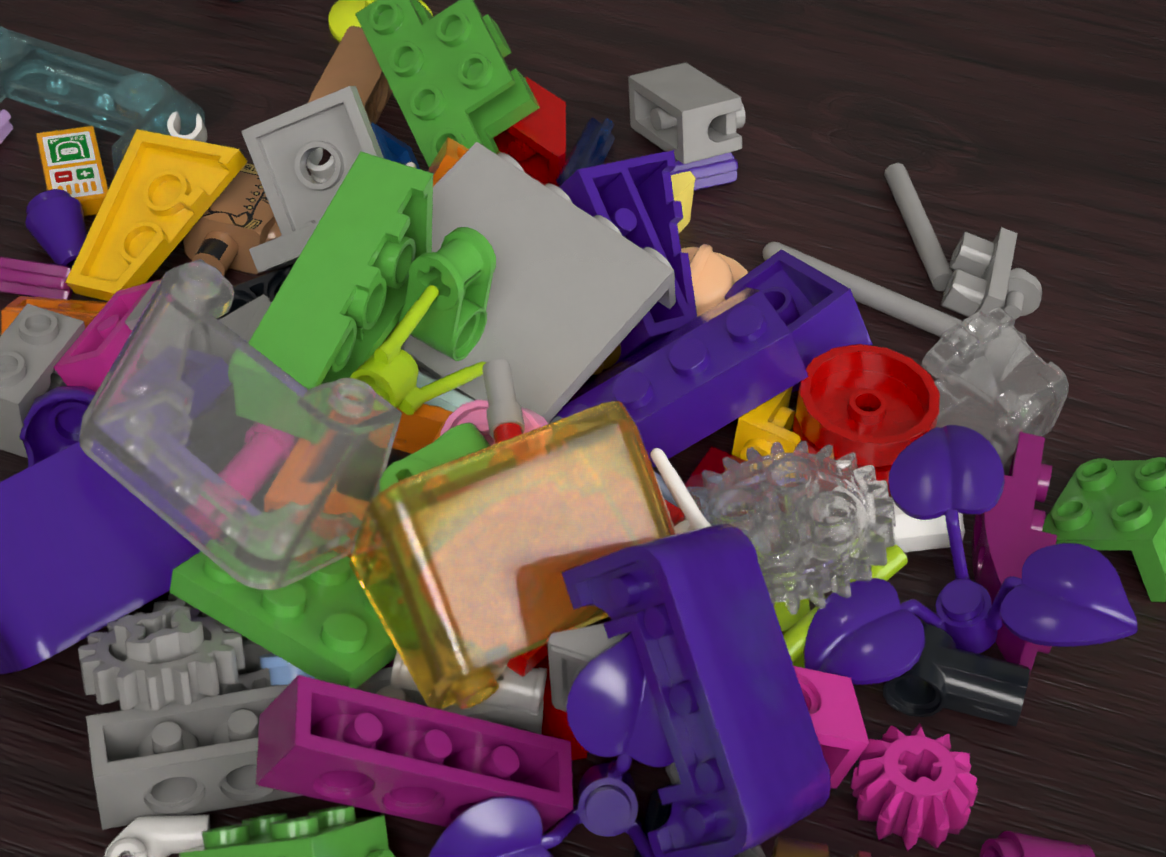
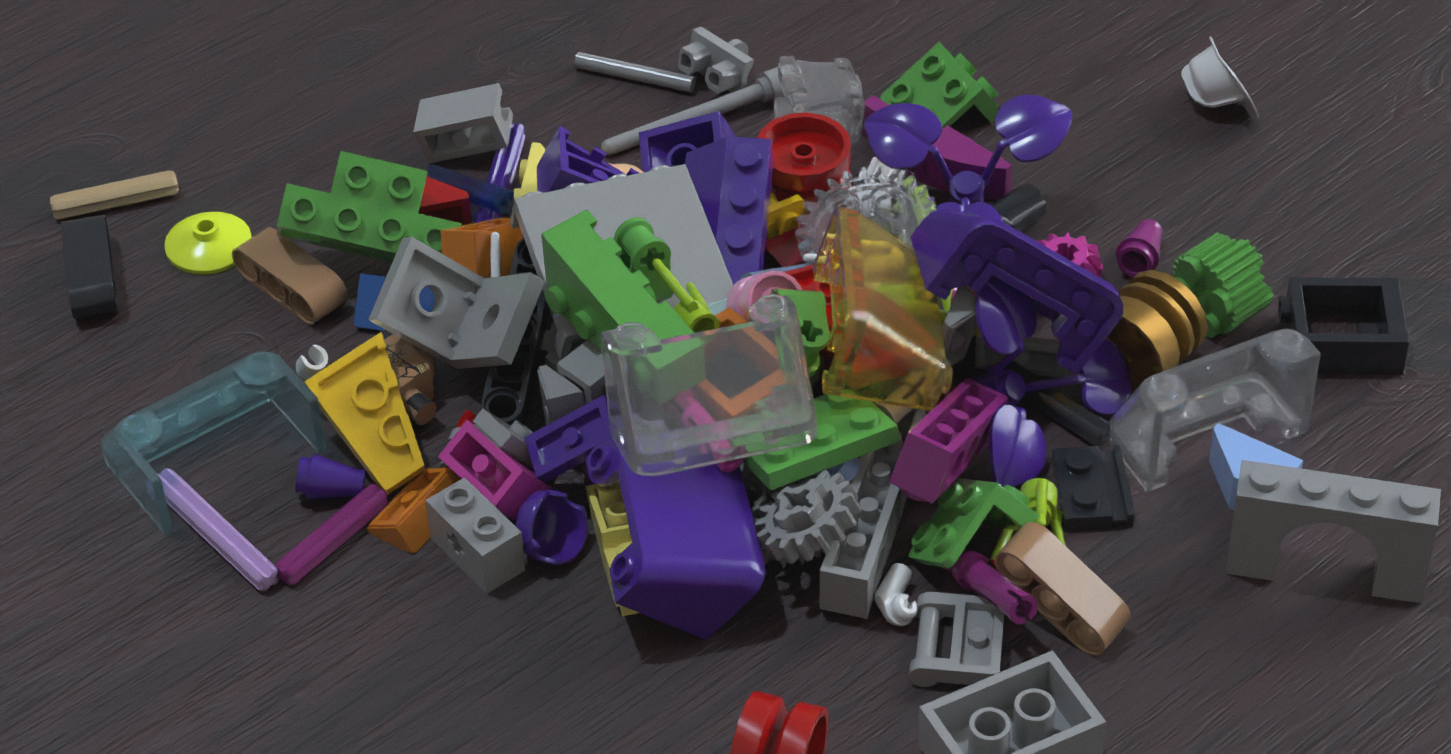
camera: 55 degrees left, 0 degrees up
(74, 165) = (255, 457): tile -> none
(504, 412) = (786, 271): light grey piece -> none

